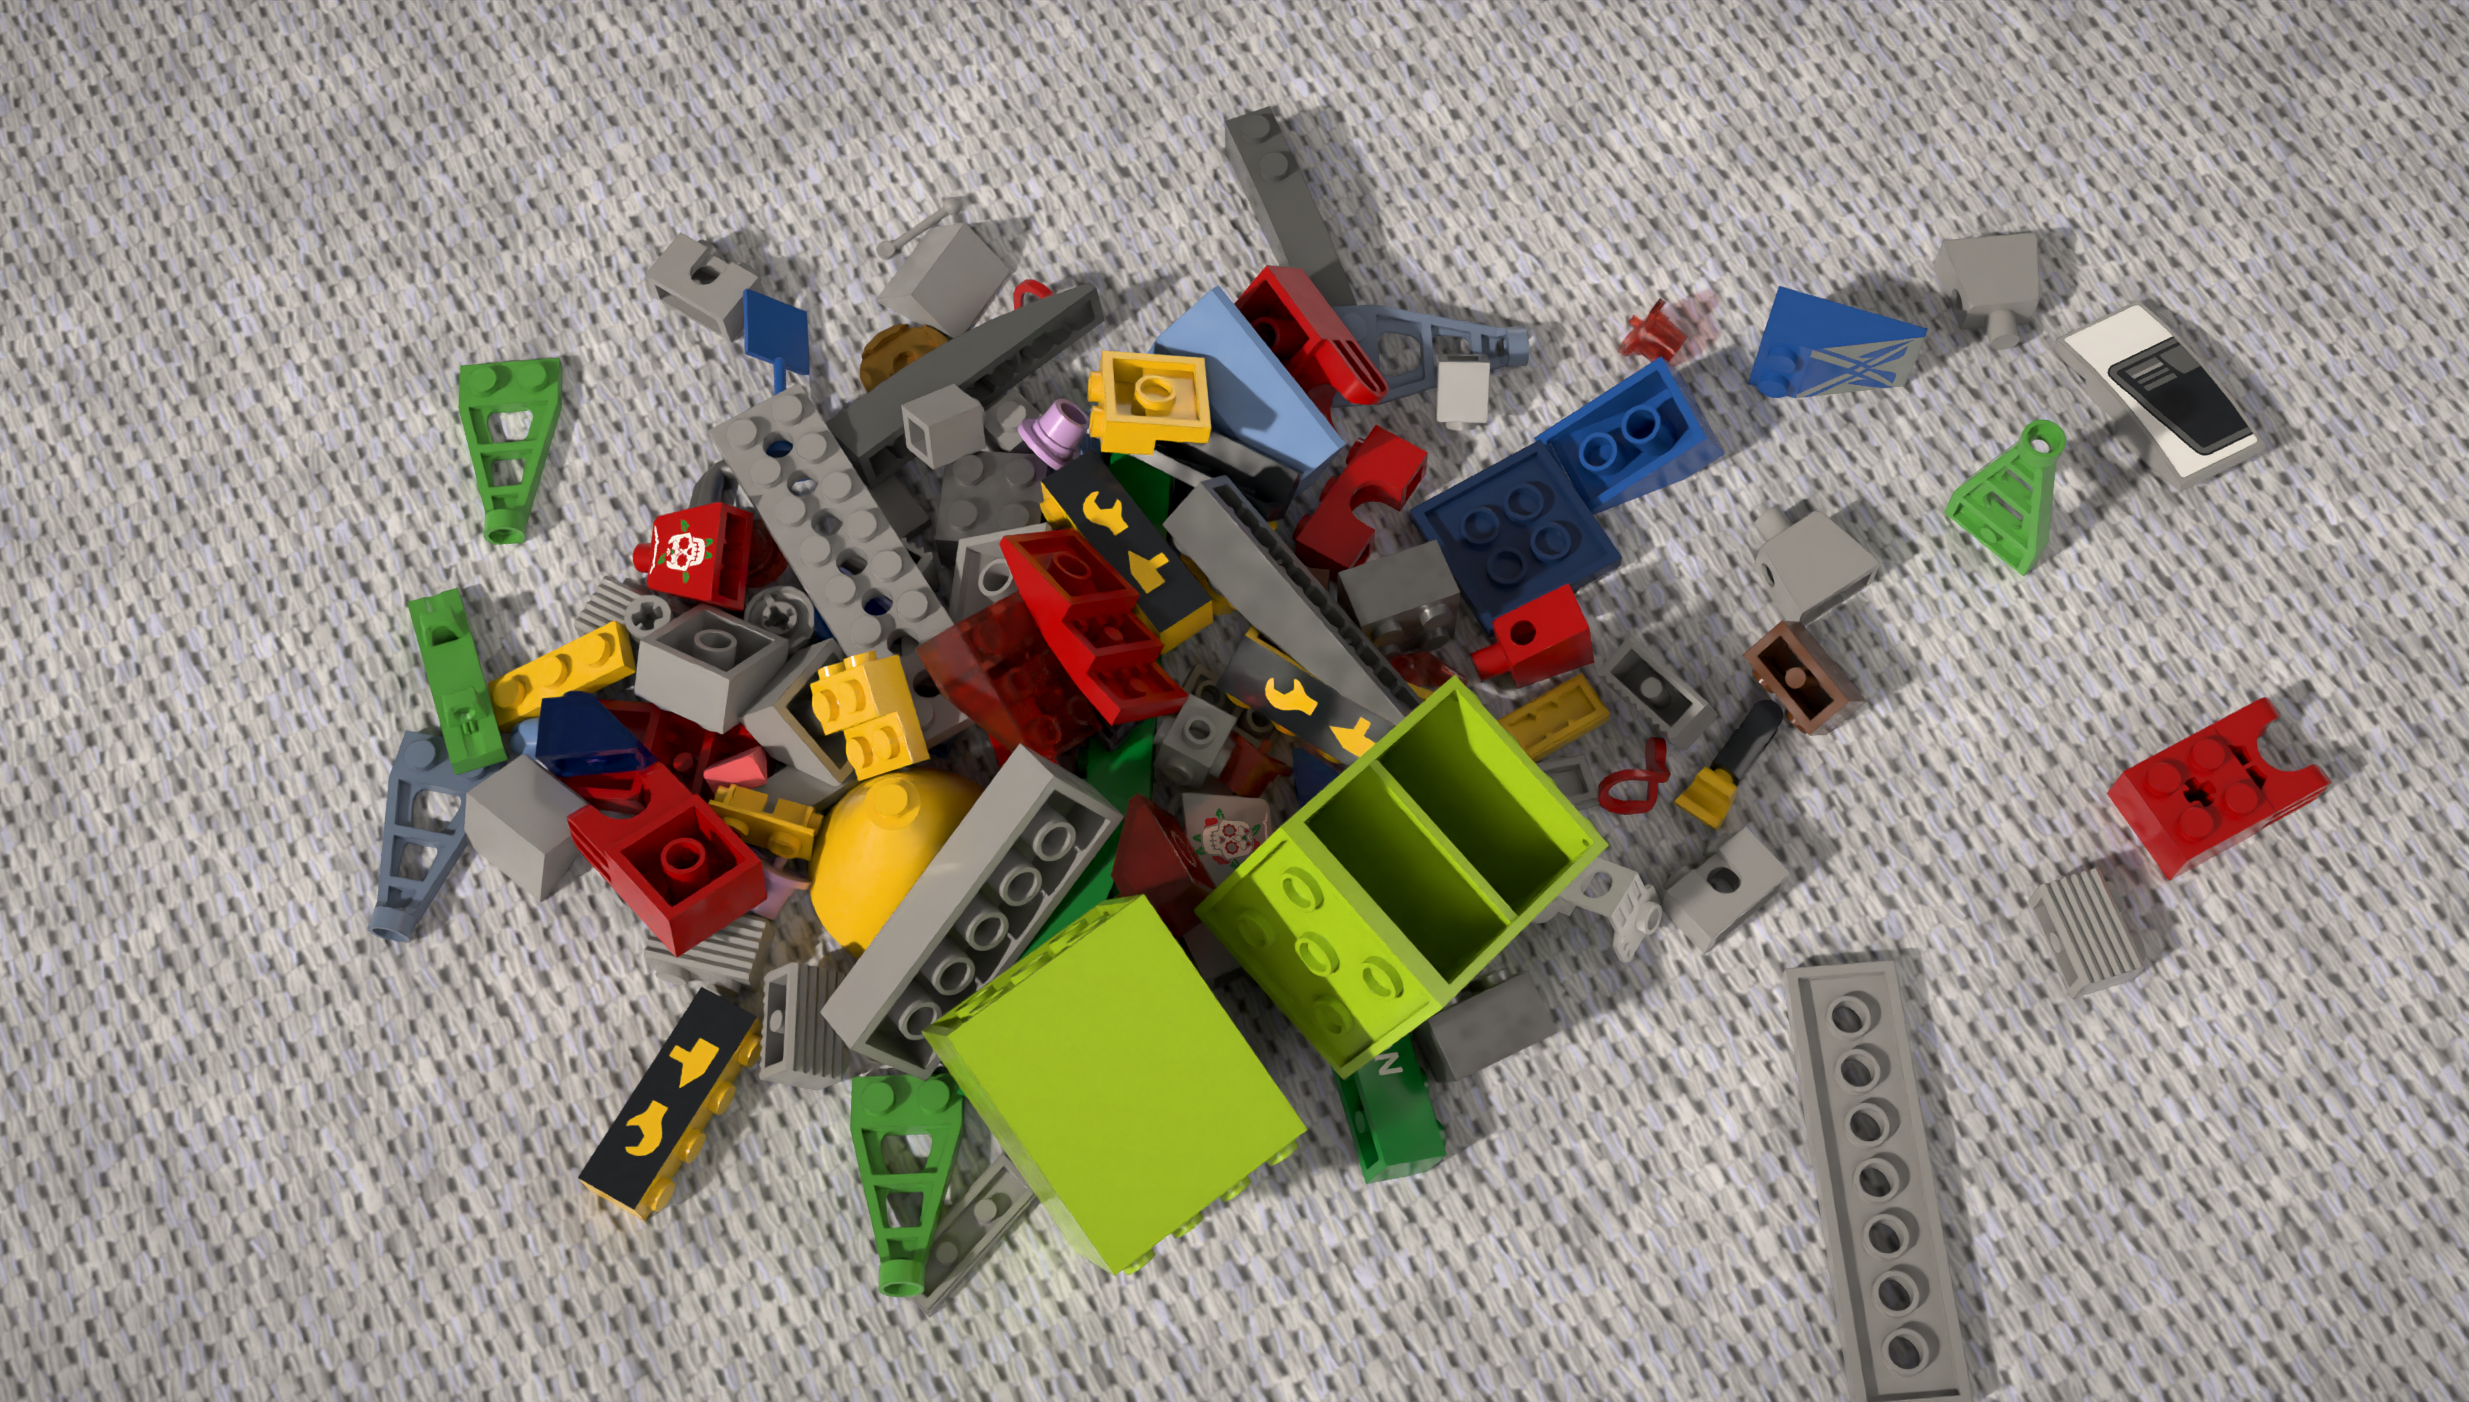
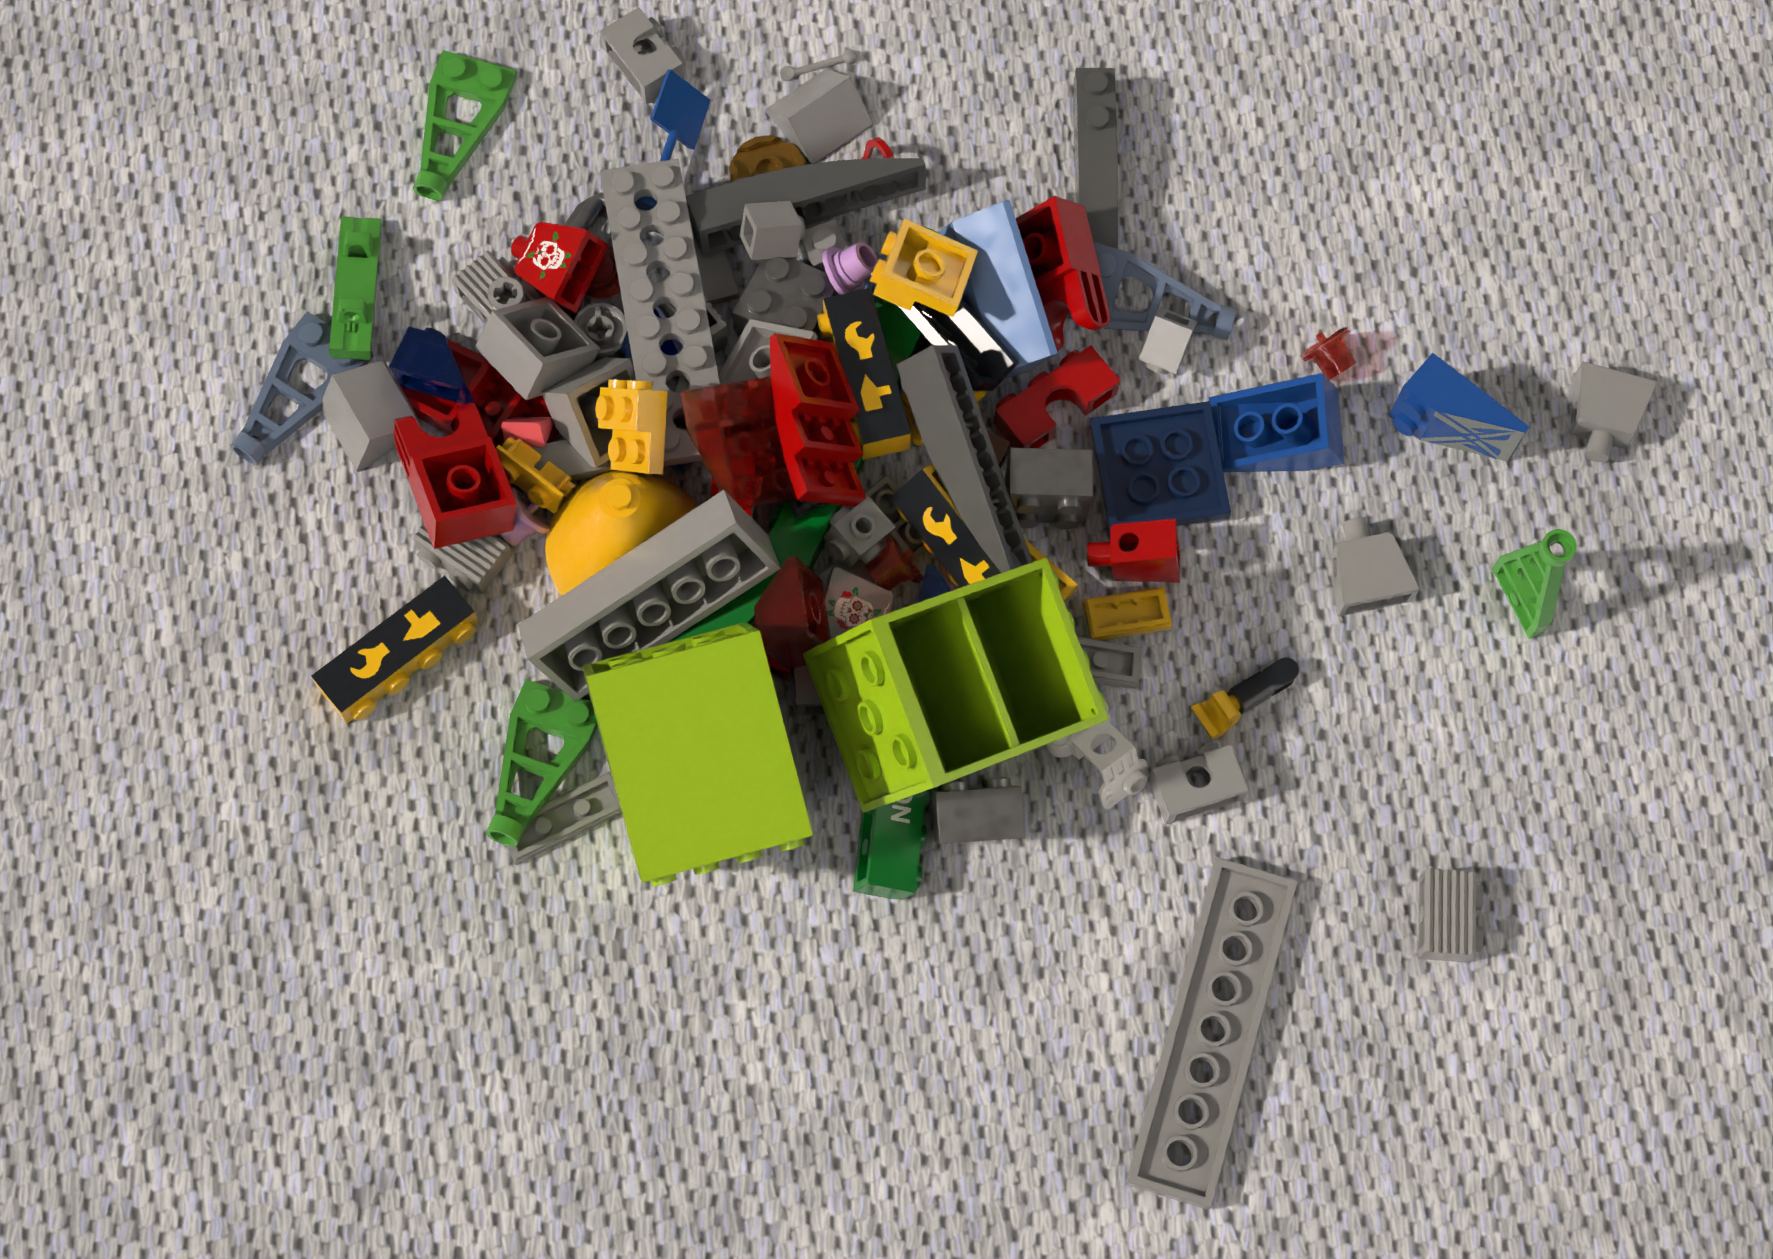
camera: 15 degrees right, 5 degrees up
(524, 737) = (388, 347): medium blue hinge -> none
(577, 666) = (444, 310): yellow plate -> none
(797, 1039) = (496, 638): light grey brick -> none
(1425, 669) = (1053, 542): clear red arm -> none
(1657, 693) = (1211, 623): light grey brick -> none
(1658, 773) = (1191, 671): red piece -> none
(1803, 678) = (1324, 653): reddish brown brick -> none
(2160, 396) = (1695, 541): slope -> none
(2228, 790) = (1602, 848): red brick -> none

